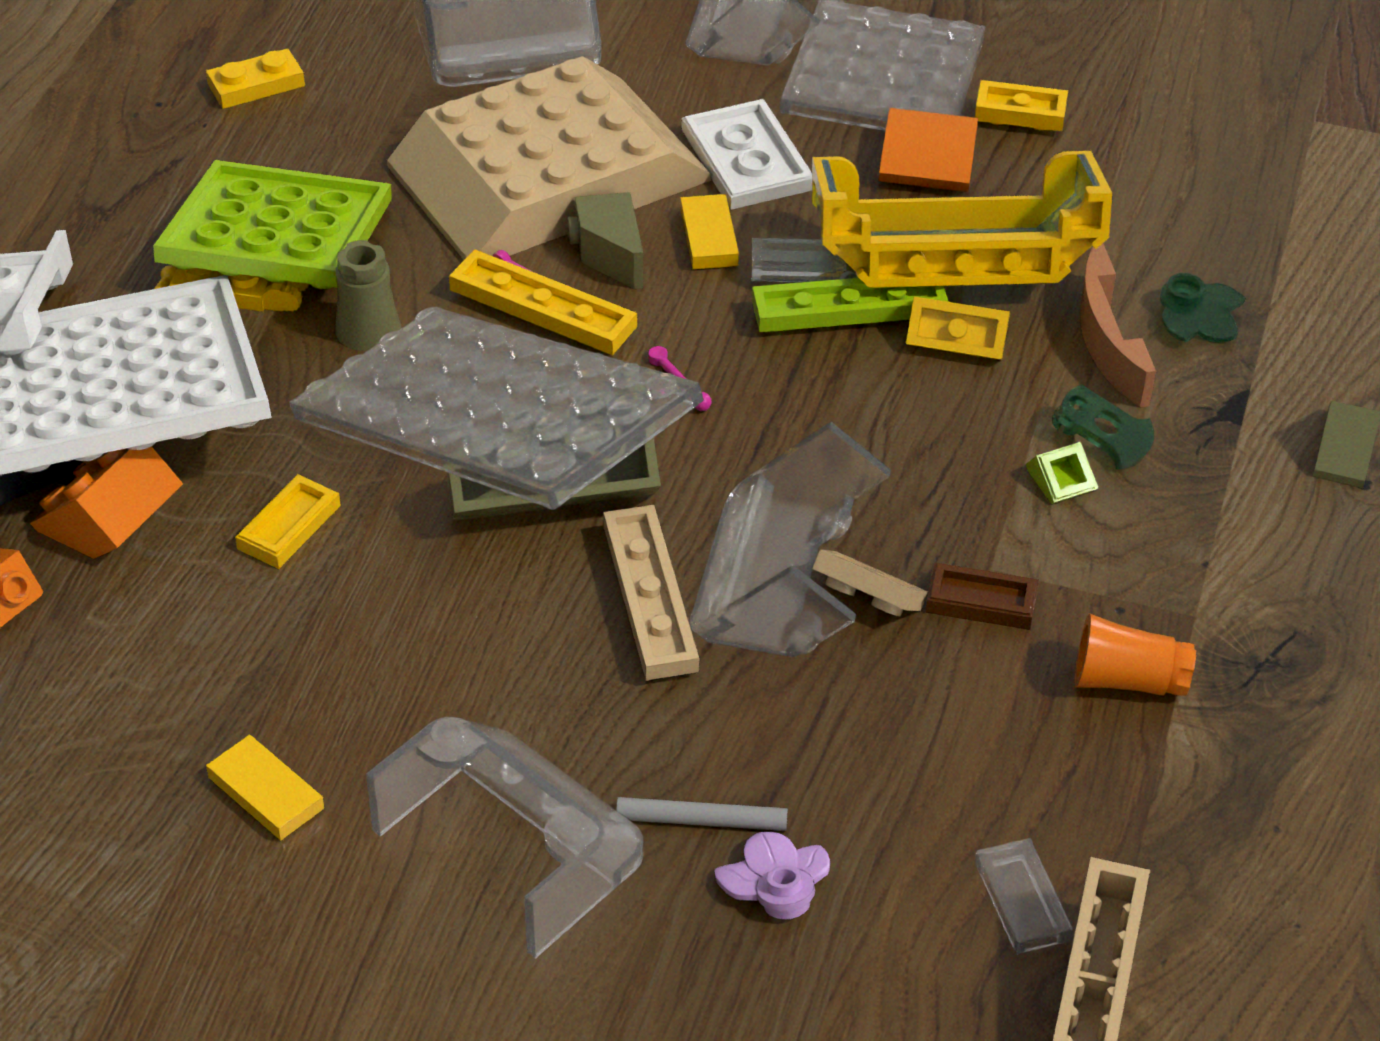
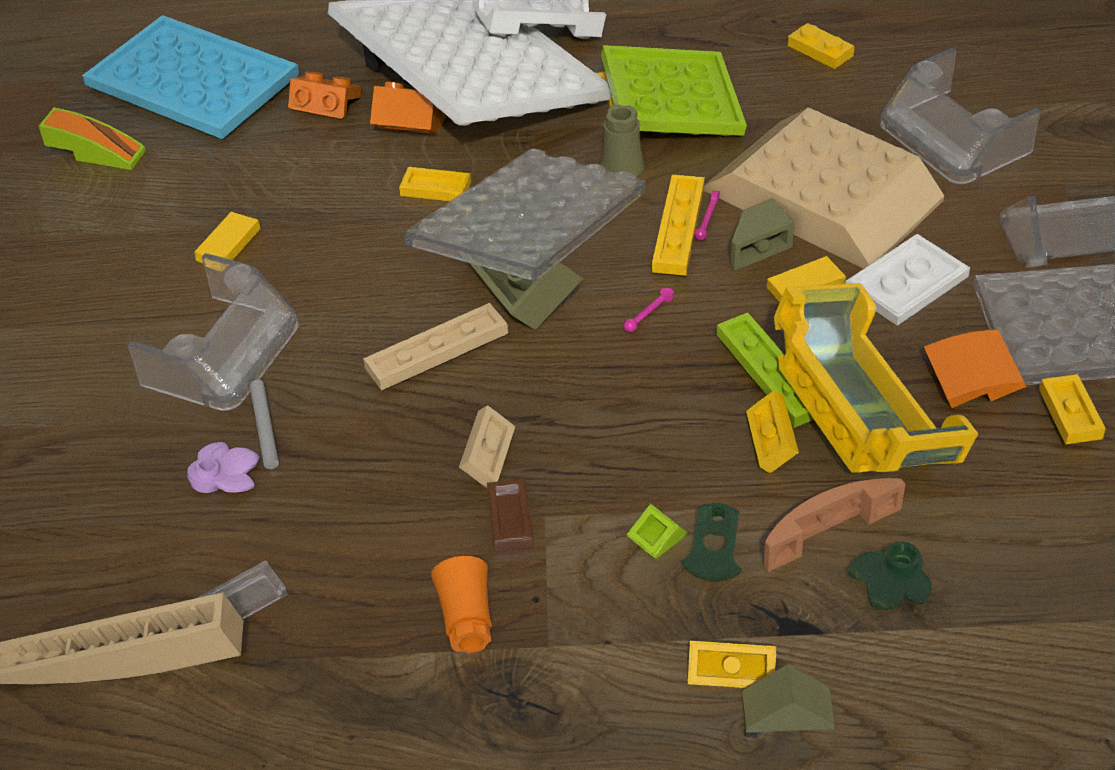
camera: 75 degrees right, 0 degrees up
(768, 539) = (456, 394): clear windscreen -> none
(1275, 467) = (729, 664): none -> yellow slope

